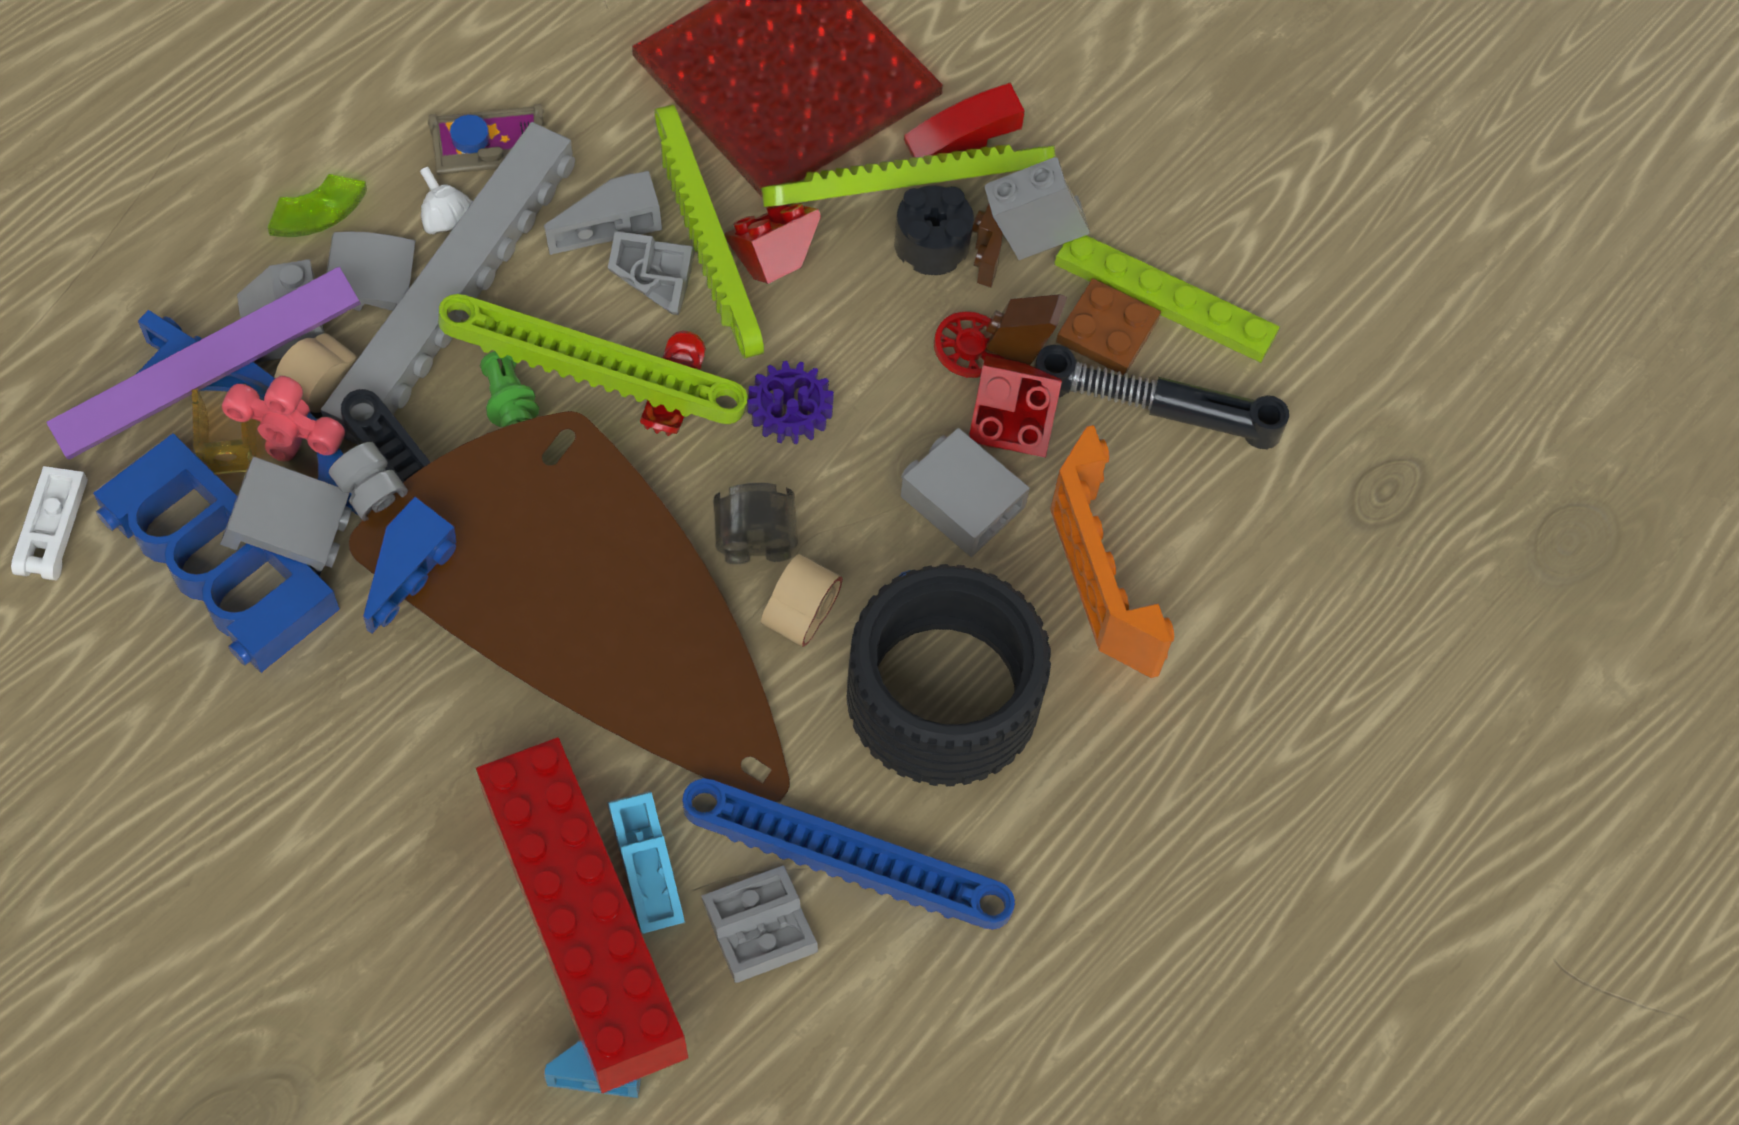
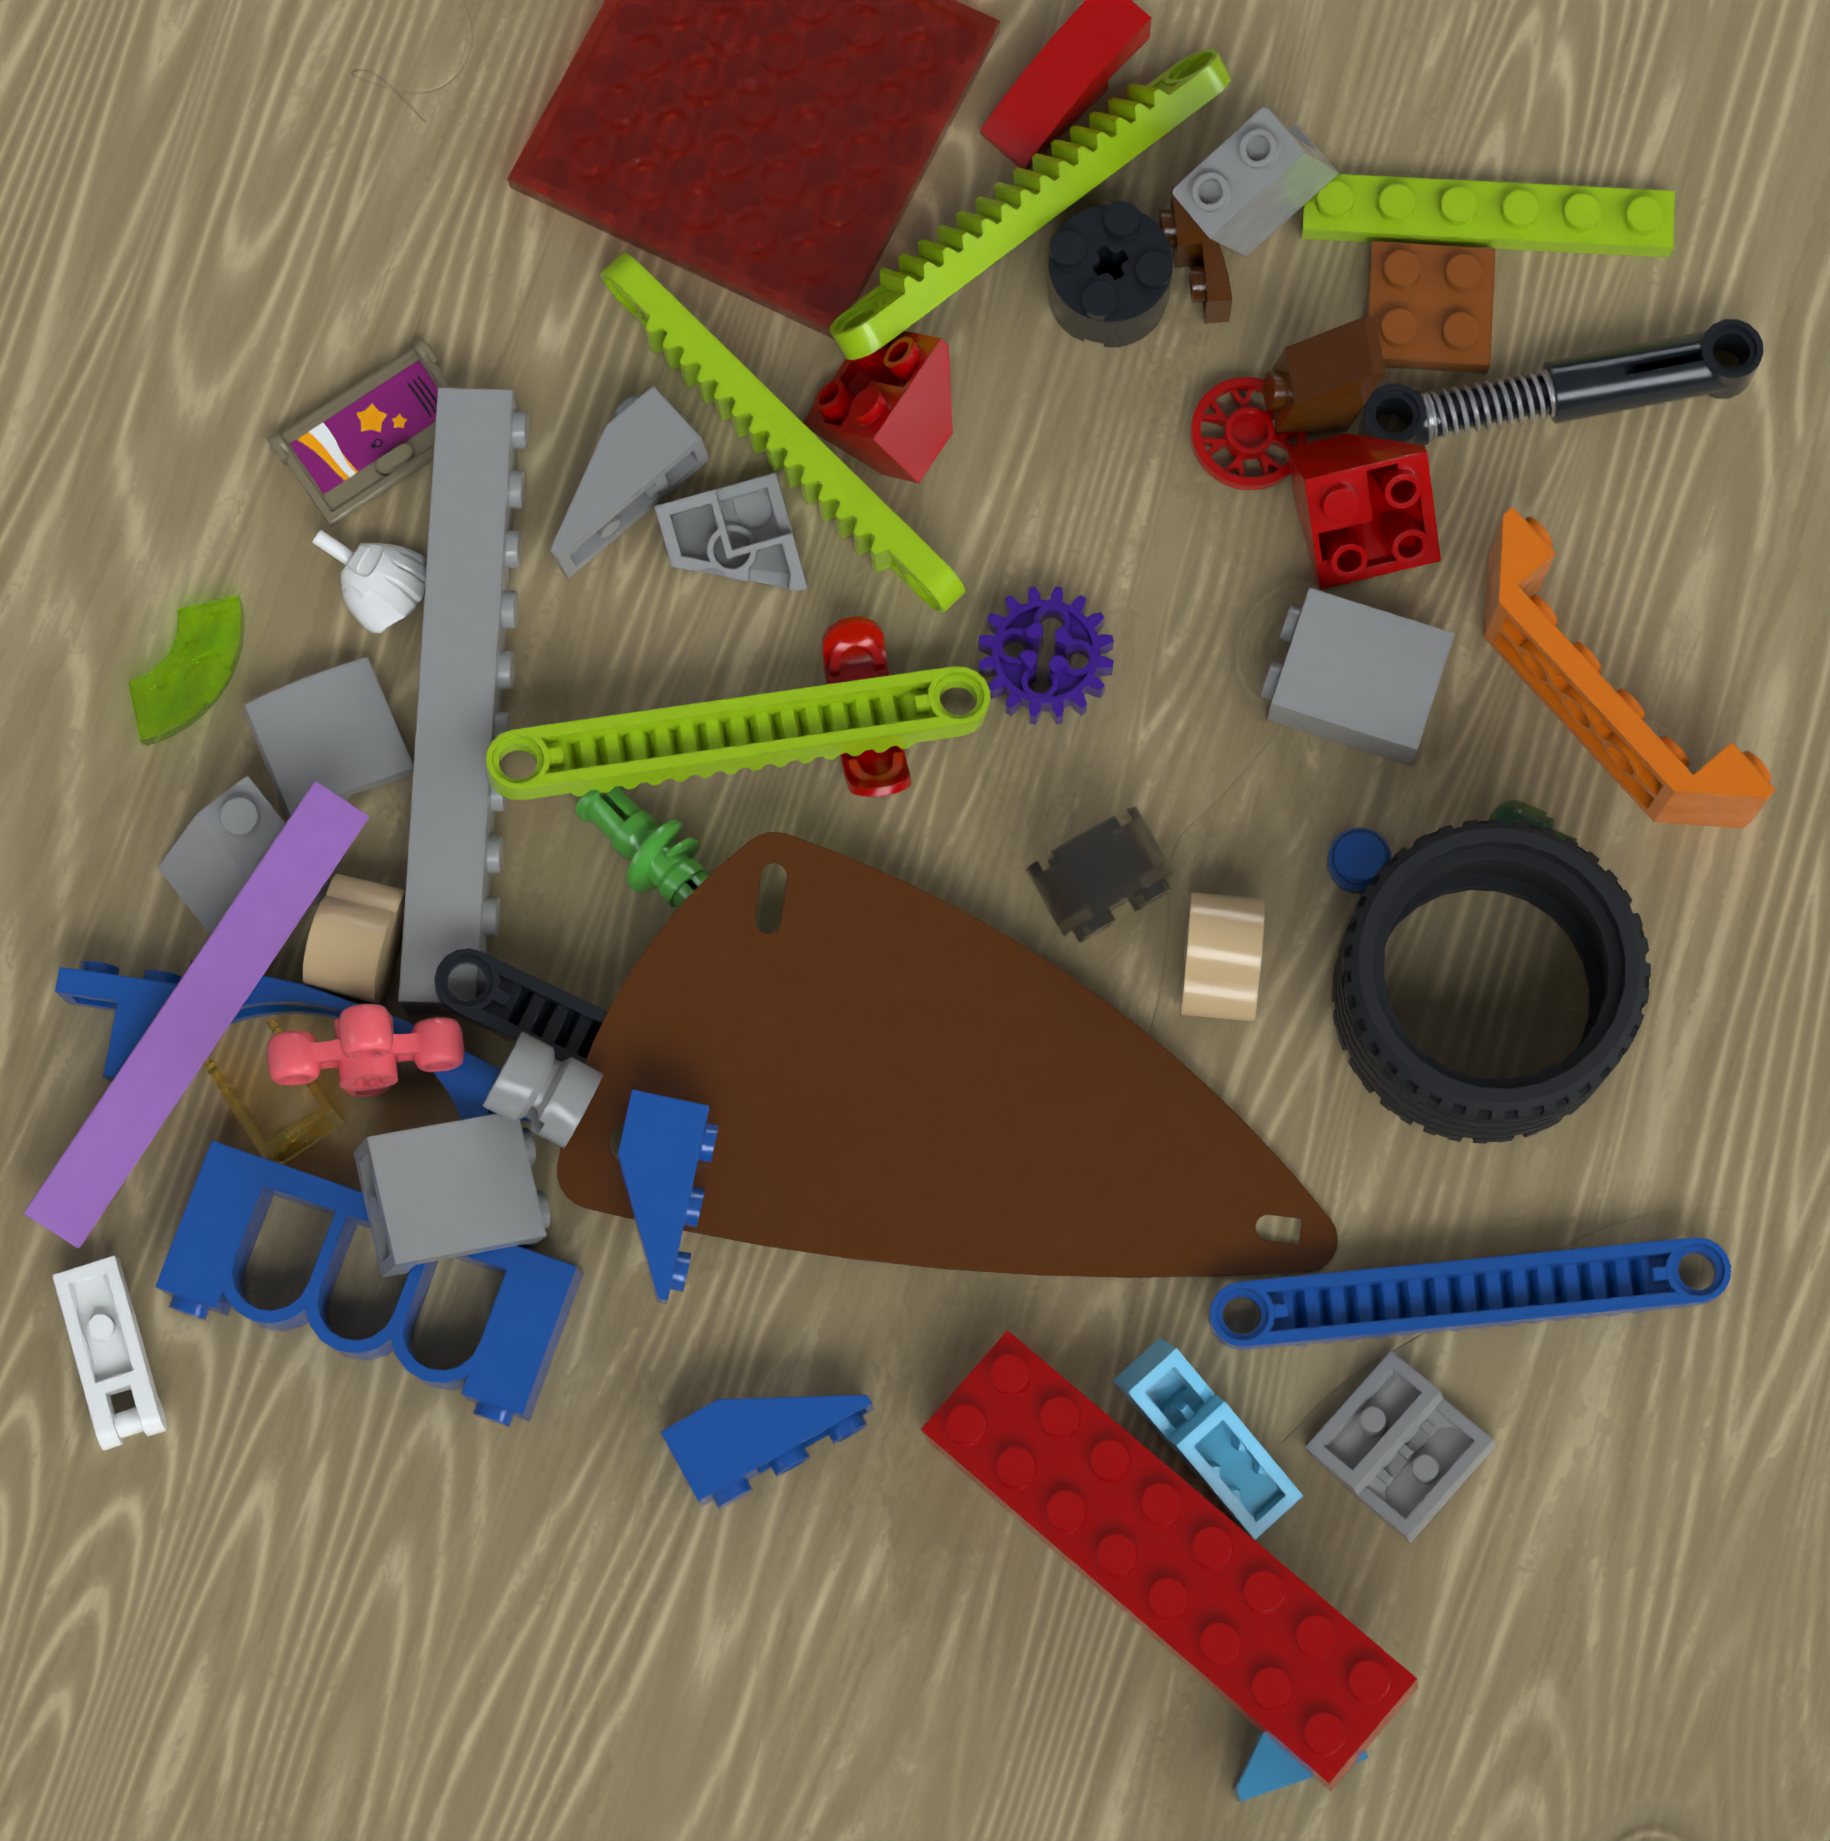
camera: 15 degrees left, 15 degrees up
(374, 733) = (746, 1436): none -> blue slope
(469, 134) = (349, 444): blue piece -> none

